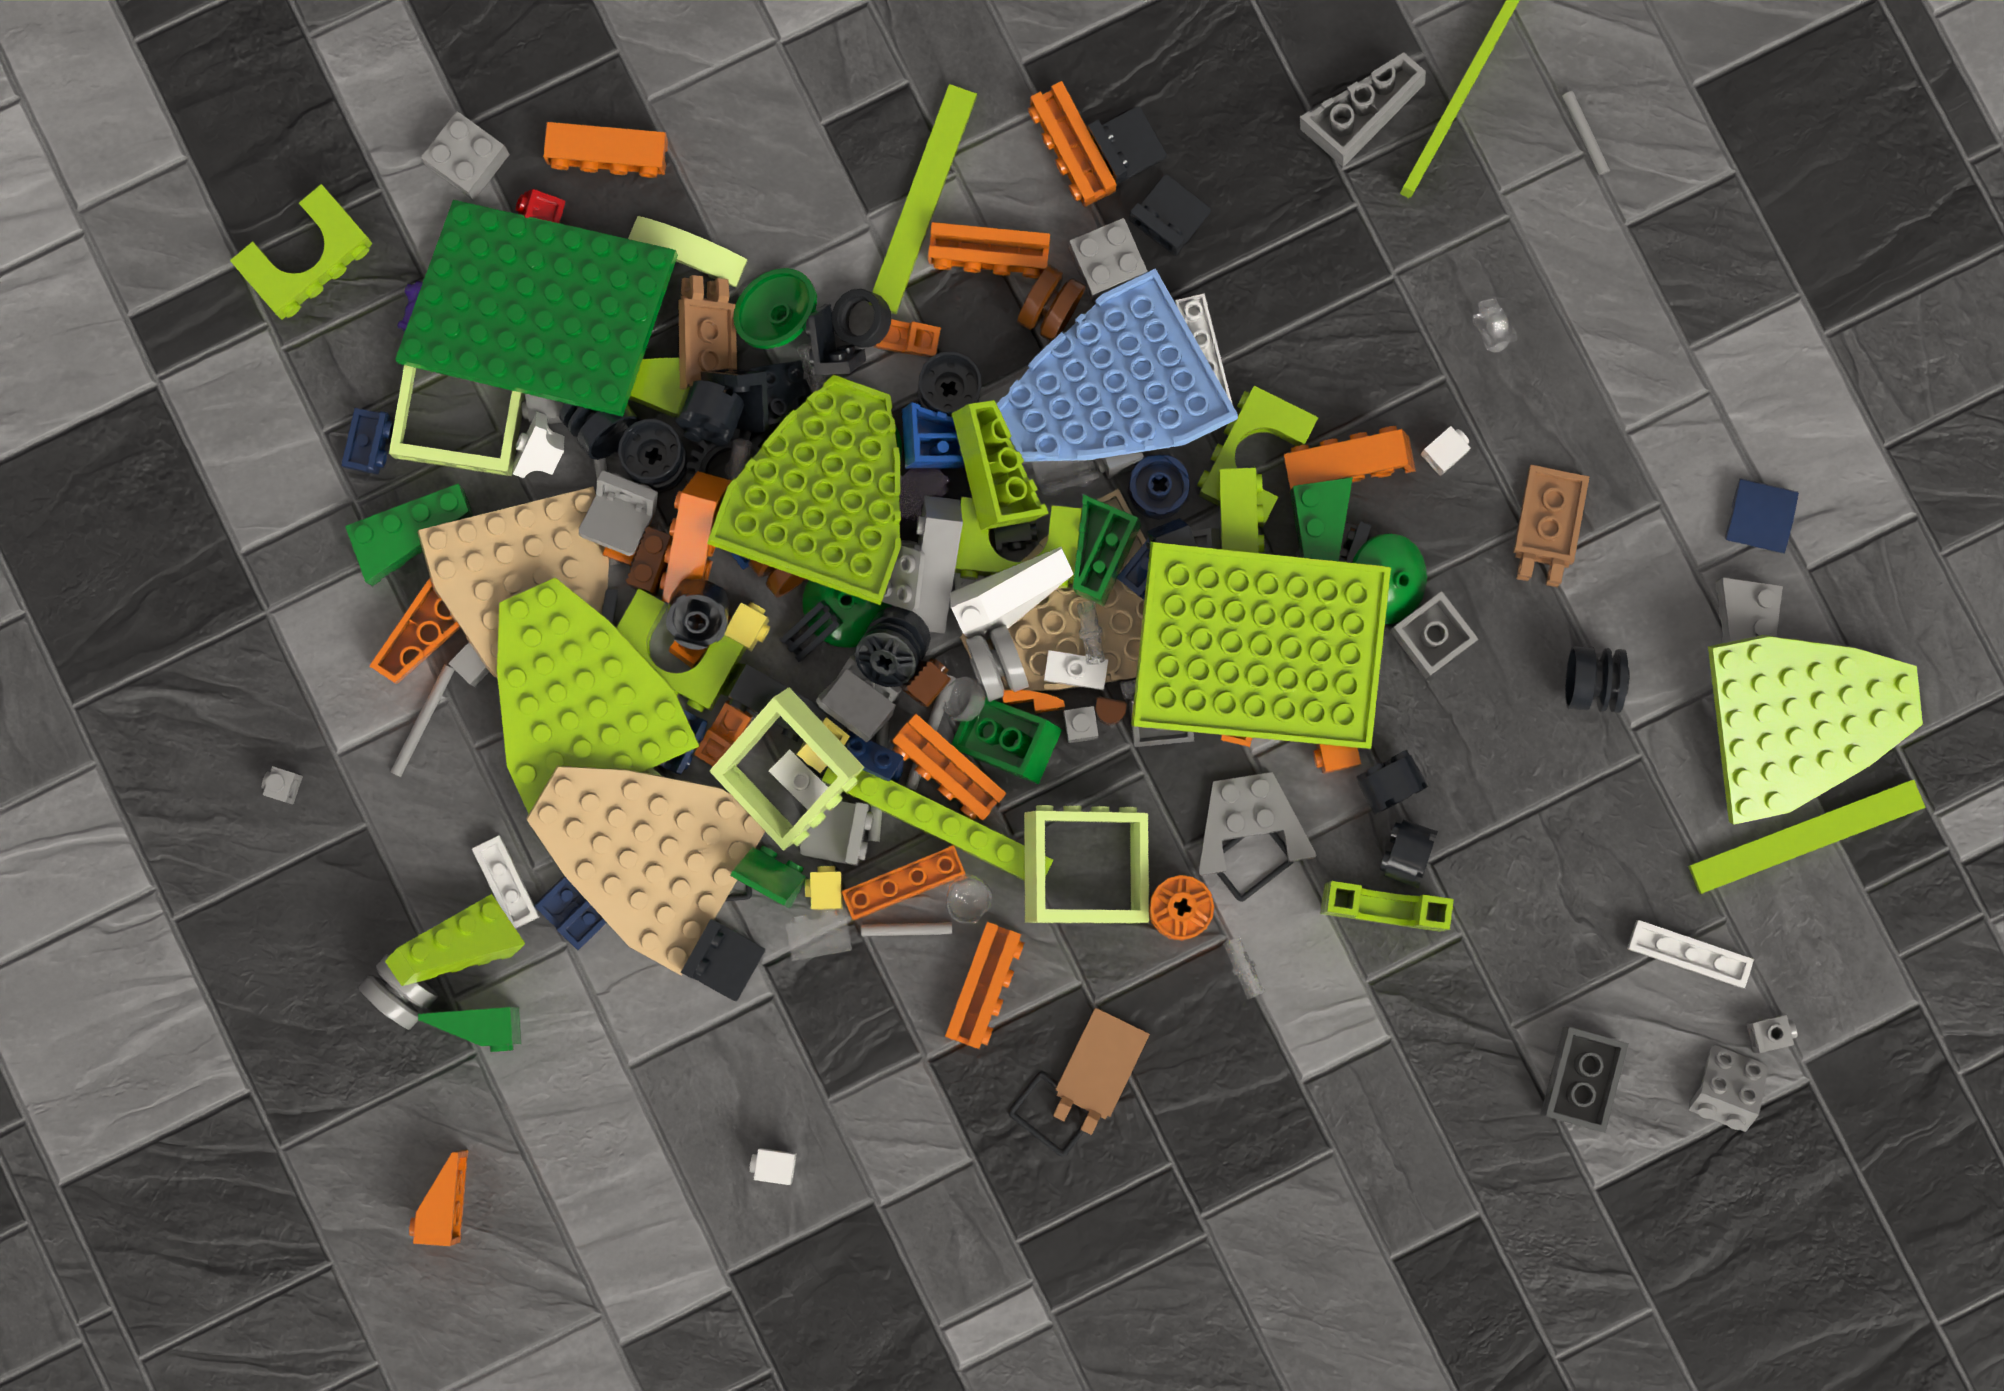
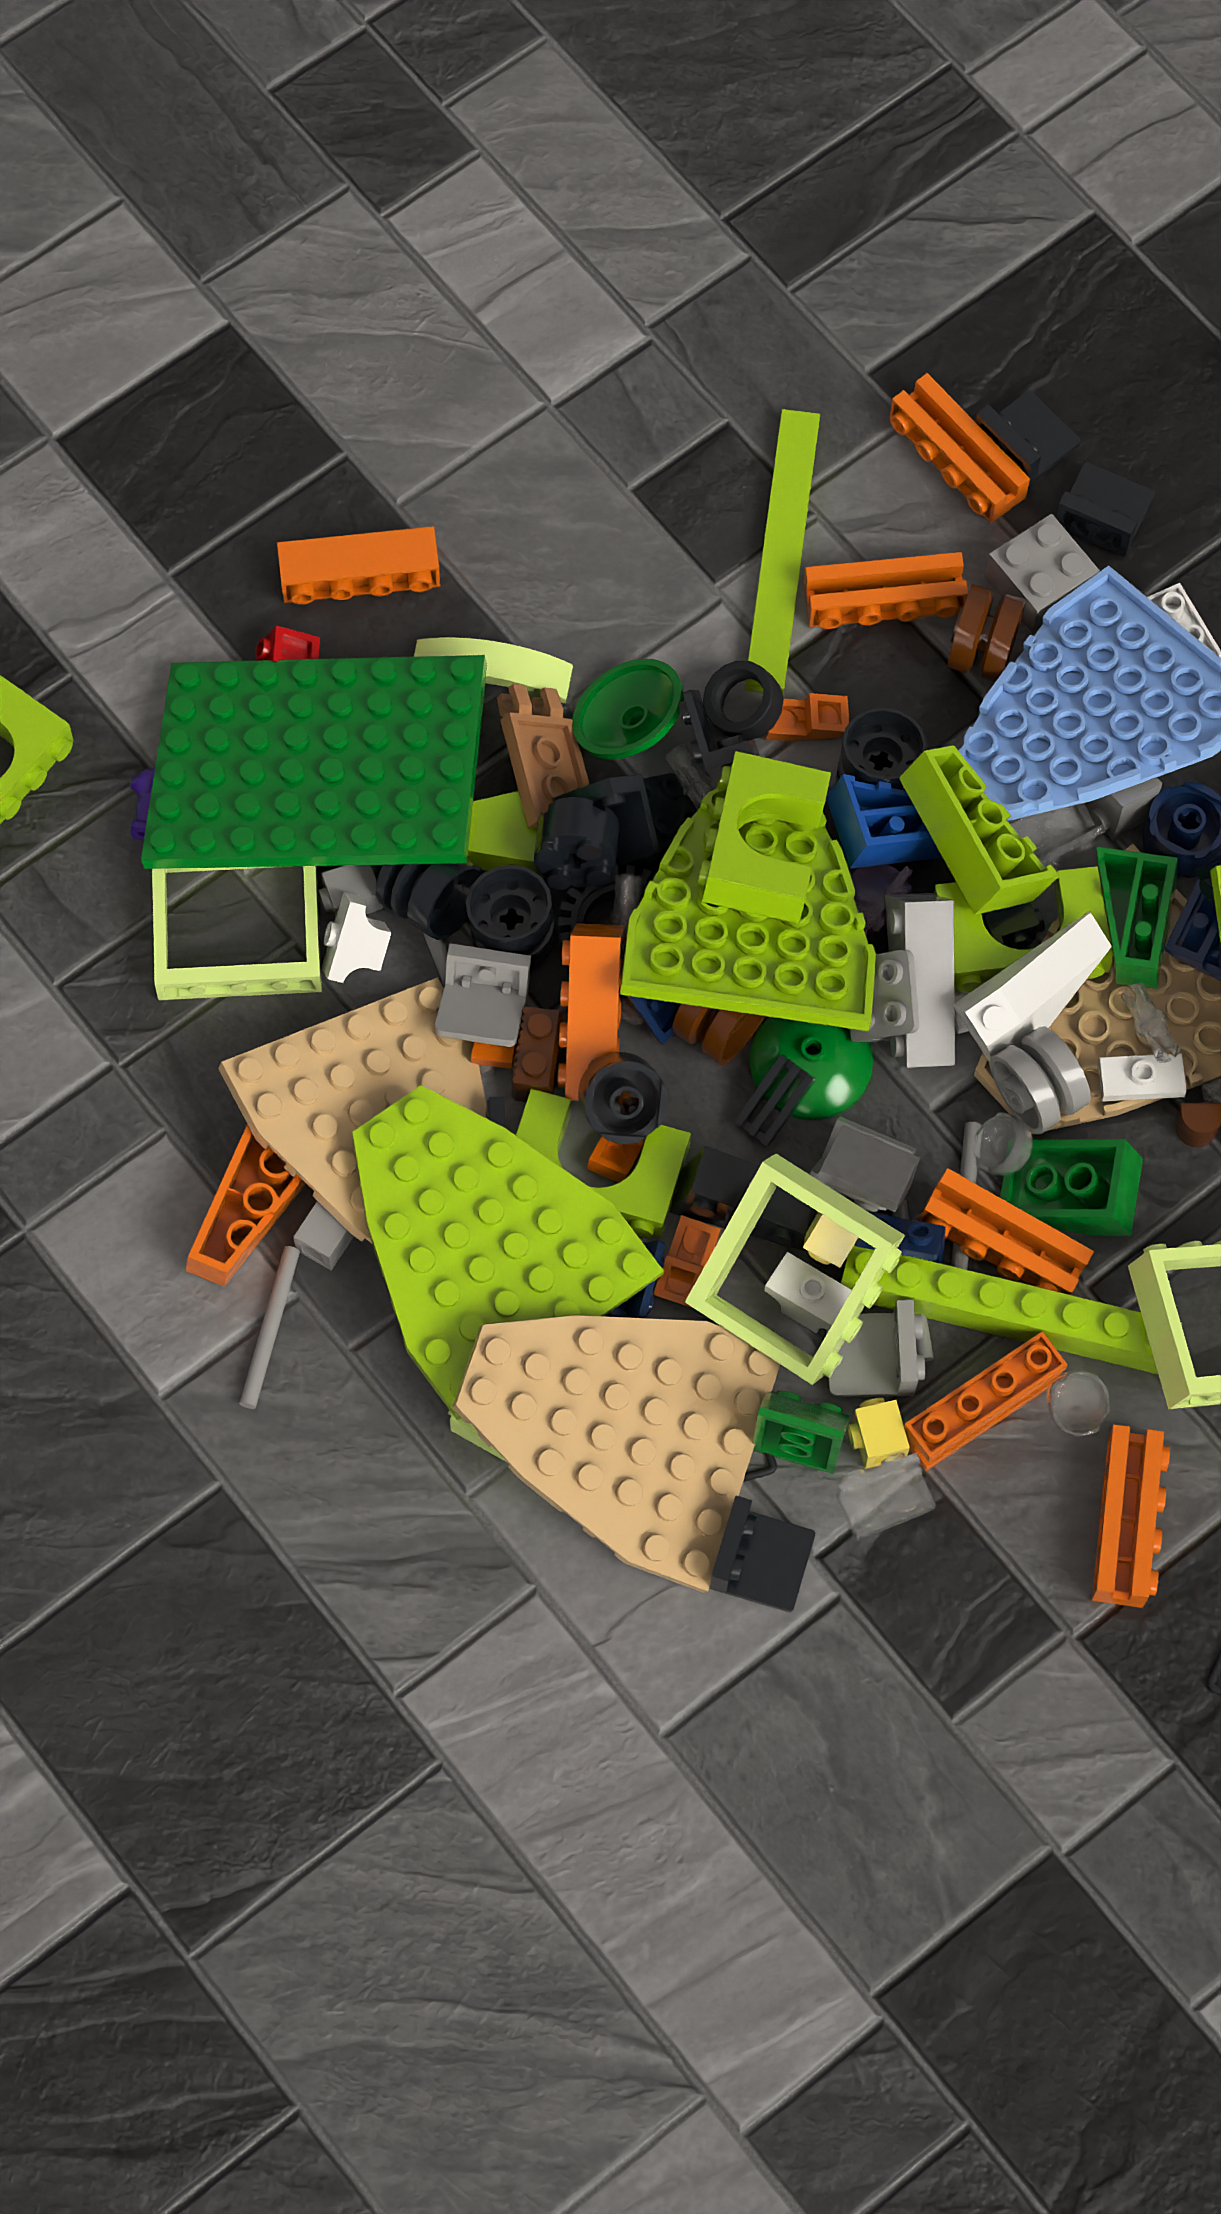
camera: 15 degrees left, 15 degrees down
(281, 785) = (92, 1448): light grey brick -> none
(367, 441) = (119, 980): dark blue bracket -> none
(392, 537) = (186, 1088): green wedge -> none
(393, 998) = (318, 1689): light grey wheel -> none
(441, 1211) = (444, 1986): orange slope -> none
(461, 941) = (394, 1597): lime wedge -> none
(465, 155) = (176, 606): light grey brick -> none
(483, 1027) = (445, 1713): green slope -> none
(505, 881) = (434, 1517): white plate -> none
(570, 913) = (535, 1536): dark blue slope -> none
(748, 625) = (690, 1109): light yellow brick -> none
(773, 1166) = (903, 1823): white brick -> none
(843, 400) = (737, 873): none -> lime arch
(892, 647) = (897, 1070): black wheel -> none
(906, 929) = (1001, 1465): light grey bar -> none
(927, 682) = (947, 1129): reddish brown brick -> none
(1041, 701) = (1096, 1126): orange slope -> none
(1080, 724) = (1166, 1147): light grey brick -> none

